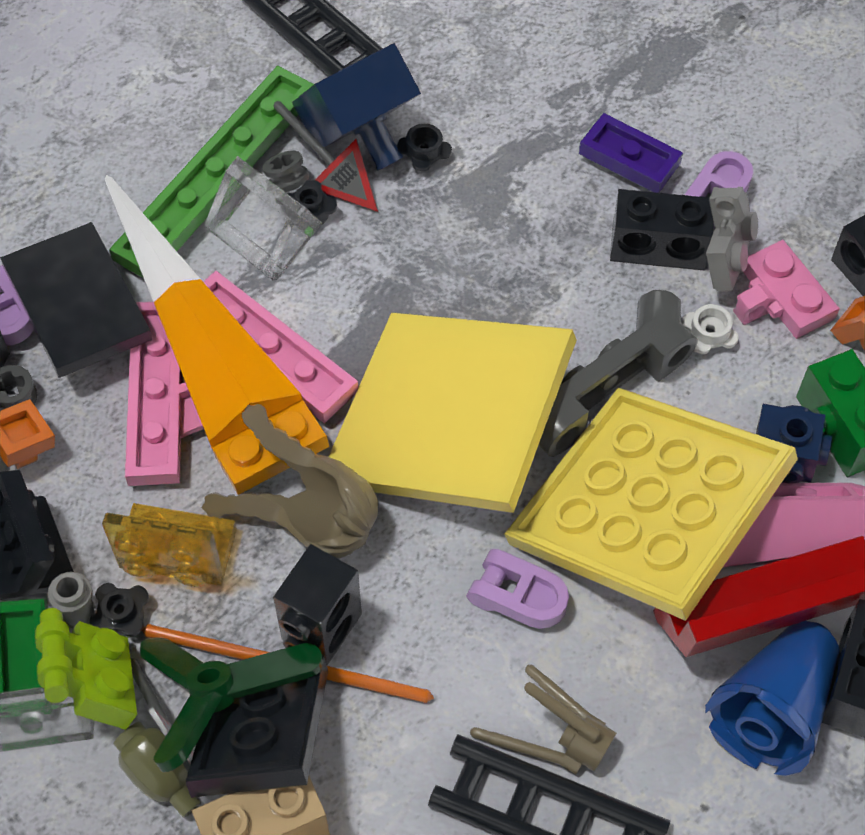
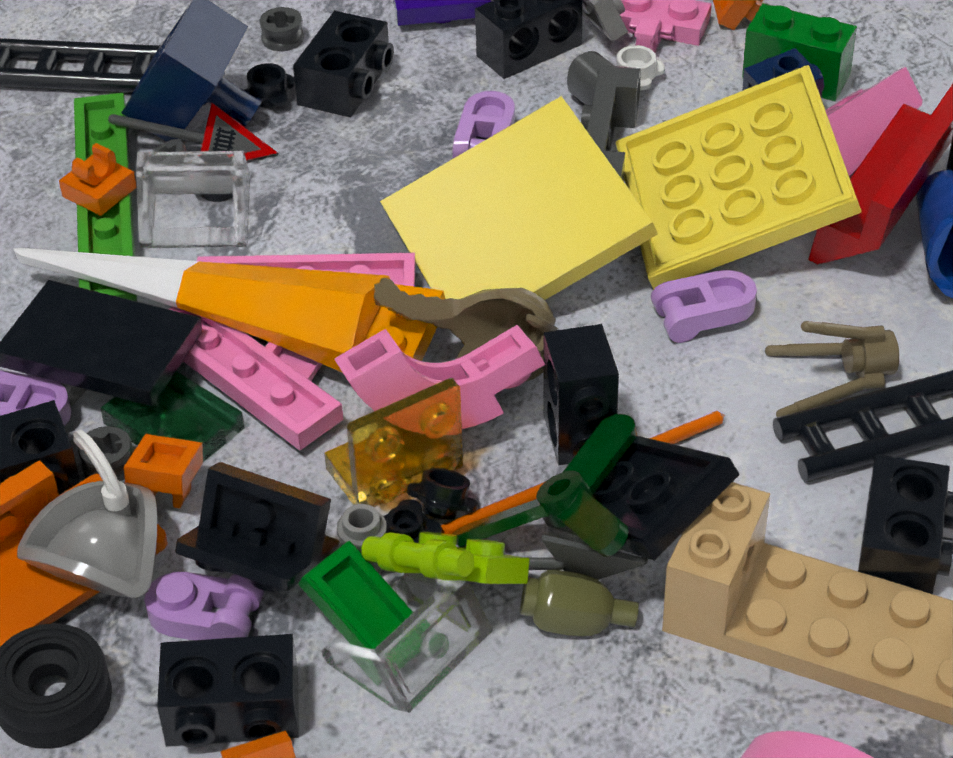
camera: 40 degrees left, 15 degrees down
(82, 402) = (180, 412): none -> clear green plate
(175, 593) = (443, 493): none -> black plate
(208, 156) = (97, 181): none -> orange tile
(248, 534) = (386, 374): none -> bright pink arch
(488, 86) = (281, 29): none -> dark grey bush
(491, 164) = (342, 63): none -> black brick
(546, 291) = (483, 117): none -> lavender plate

